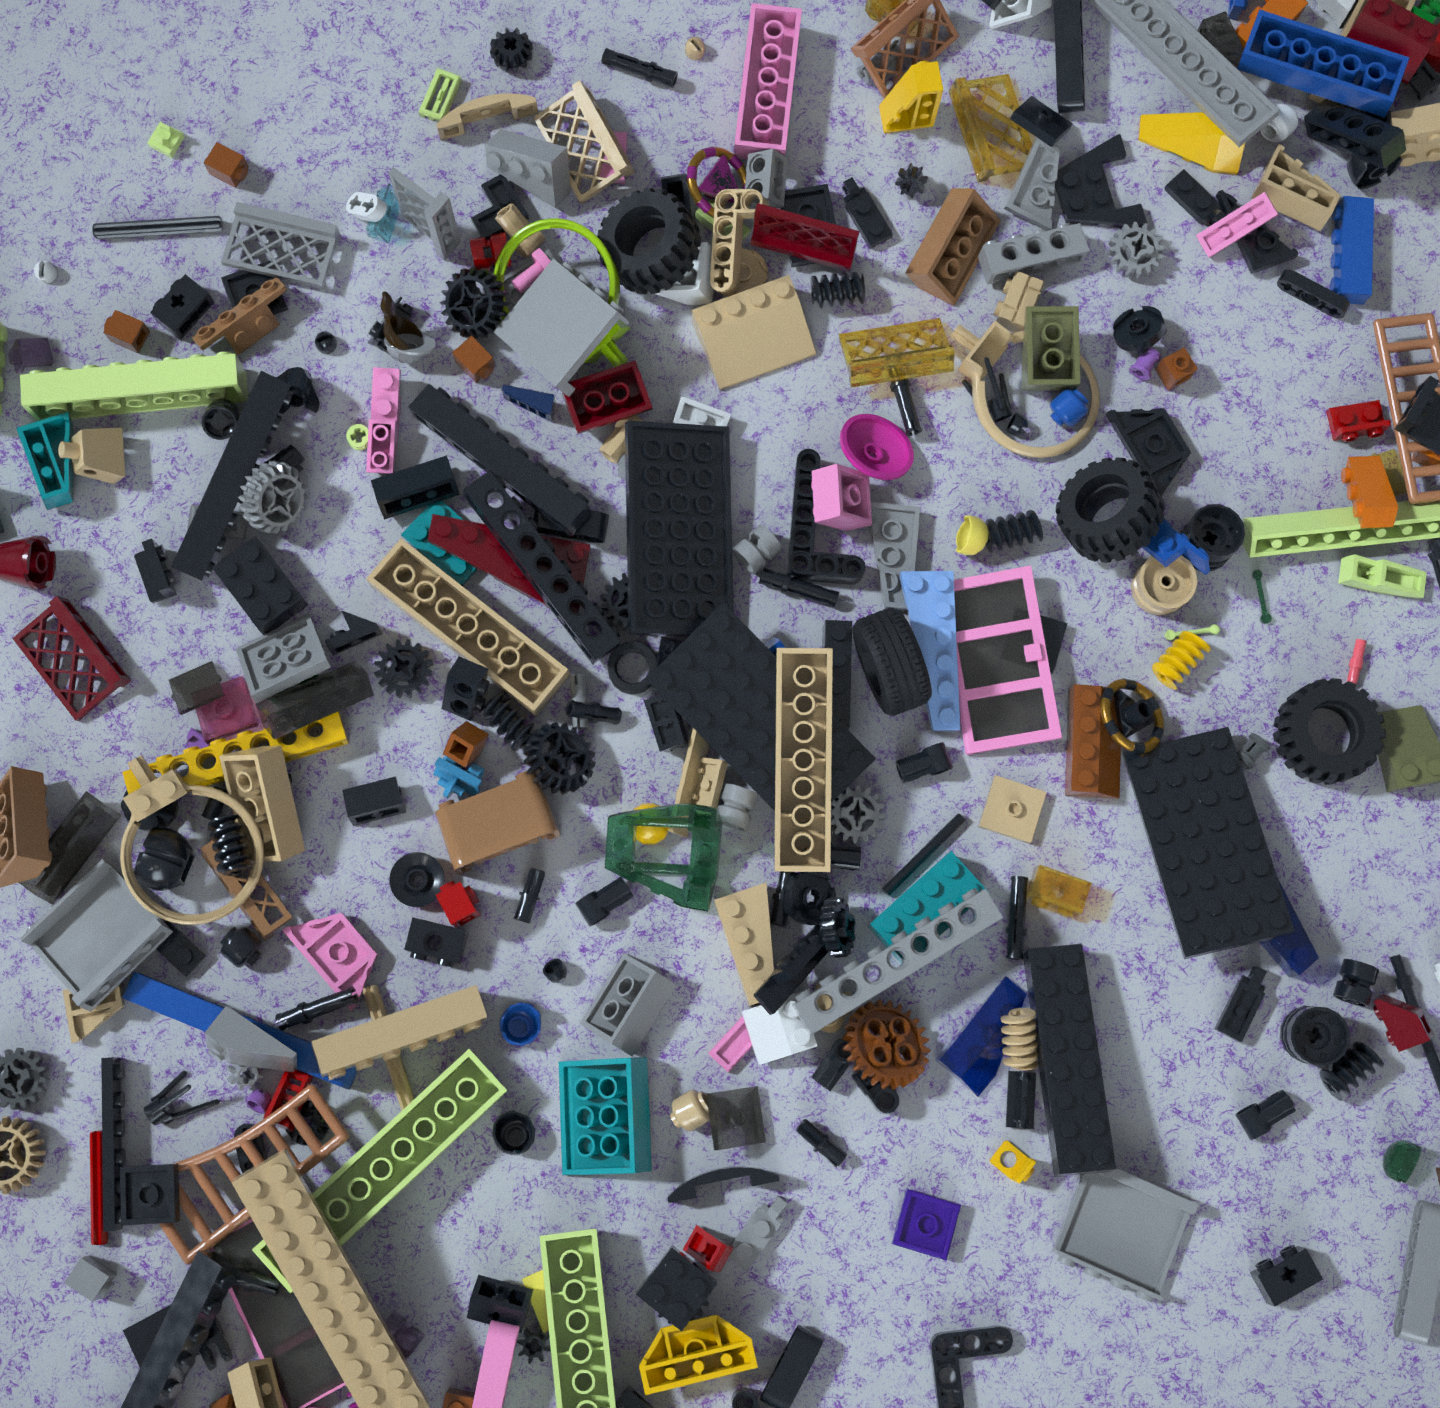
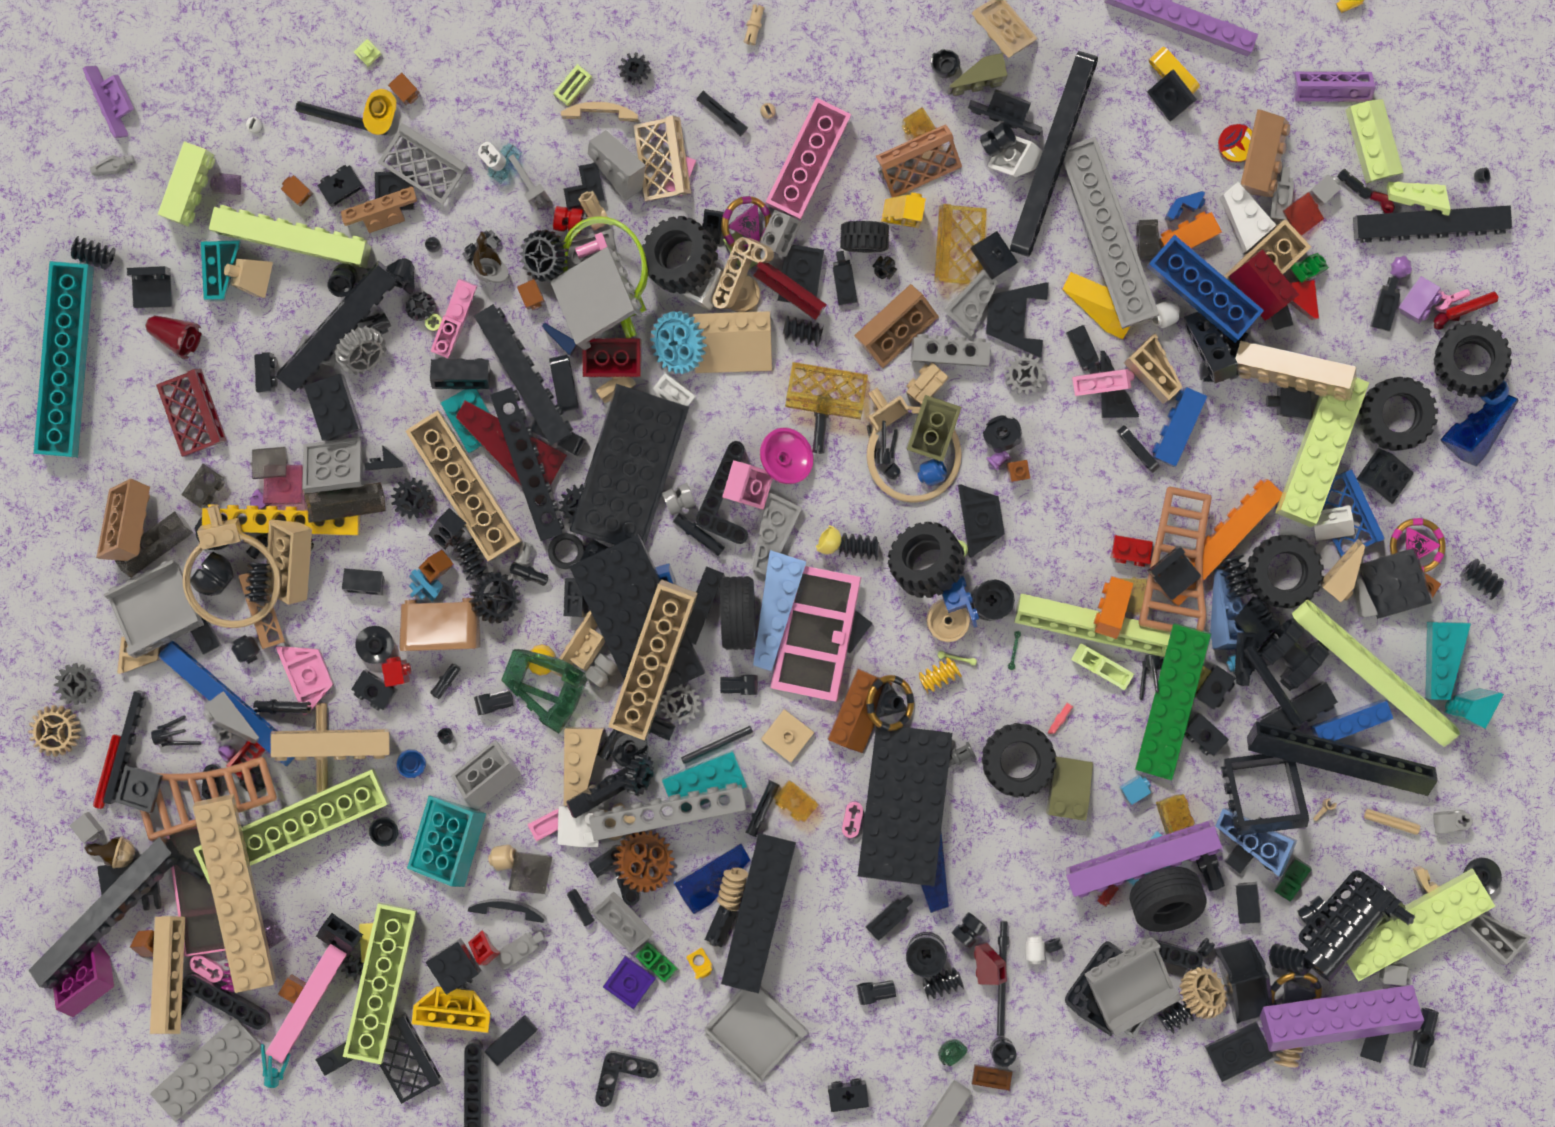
camera: 30 degrees right, 10 degrees up
(109, 746) = (199, 482): none -> clear smoke brick
(144, 1300) = (115, 853): none -> piece
(203, 197) = (379, 111): none -> yellow piece
(335, 430) = (419, 314): none -> black gear
(554, 453) = (564, 383): none -> black beam
(702, 338) = (678, 342): none -> medium azure gear
(873, 146) = (864, 236): none -> black tyre
(887, 1141) = (622, 922): none -> light grey plate
(953, 1182) = (657, 962): none -> green slope
(1147, 890) = (847, 818): none -> bright pink beam

